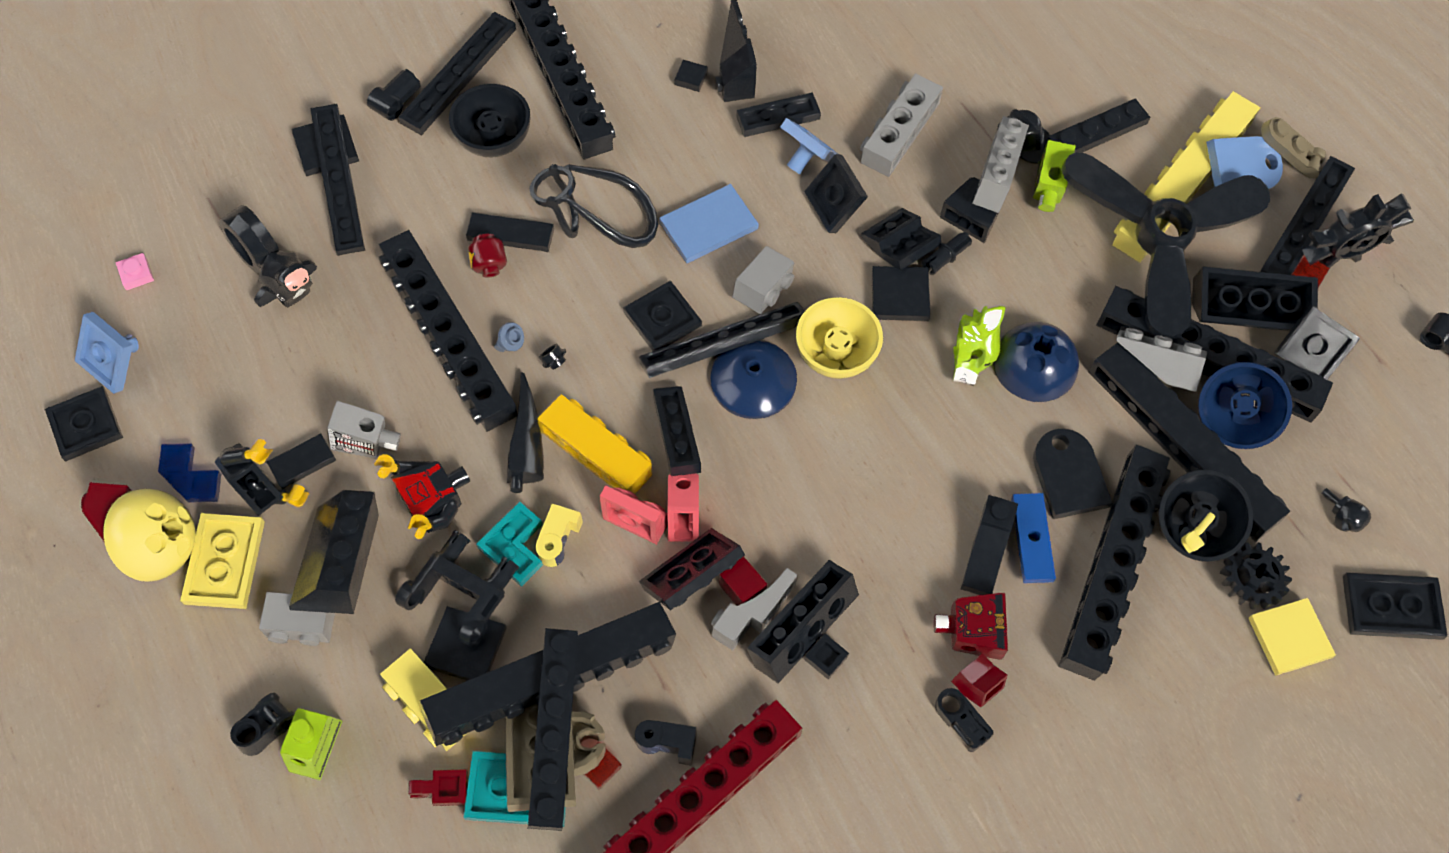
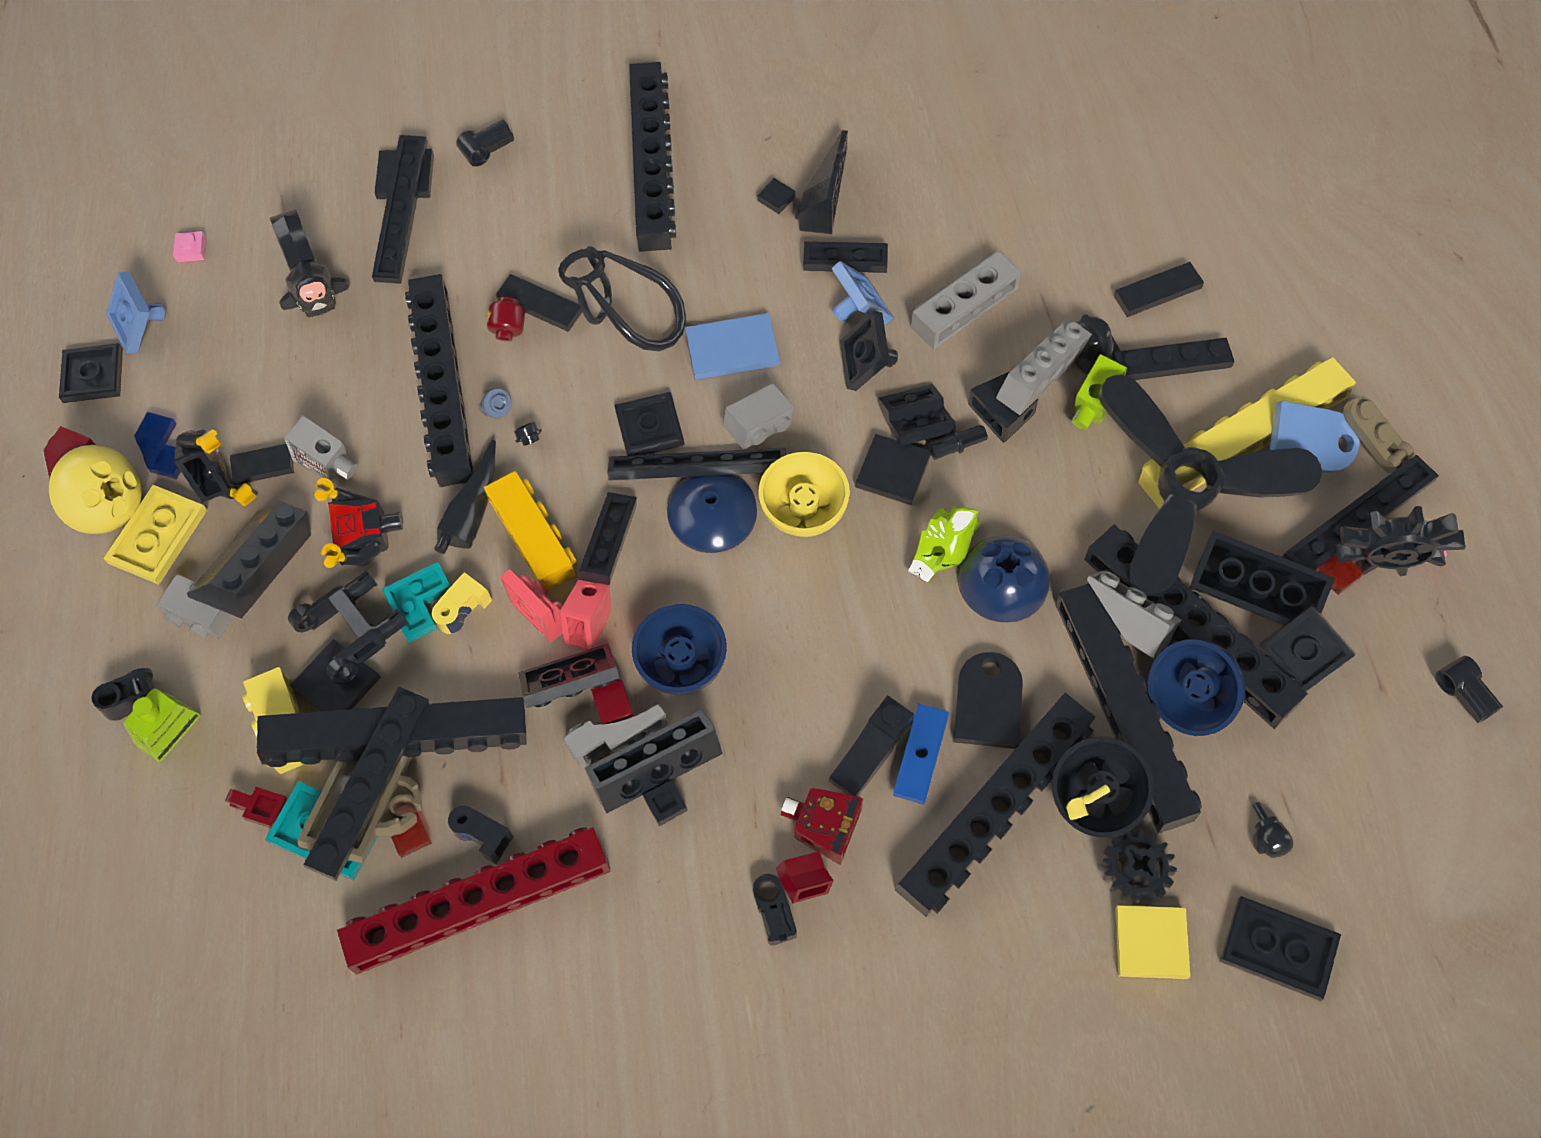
camera: 25 degrees right, 0 degrees up
(457, 73) = (553, 136): black plate -> none
(490, 120) = (558, 189): black piece -> none
(787, 497) = (679, 634): none -> dark blue piece
(1060, 72) = (1158, 289): none -> black tile

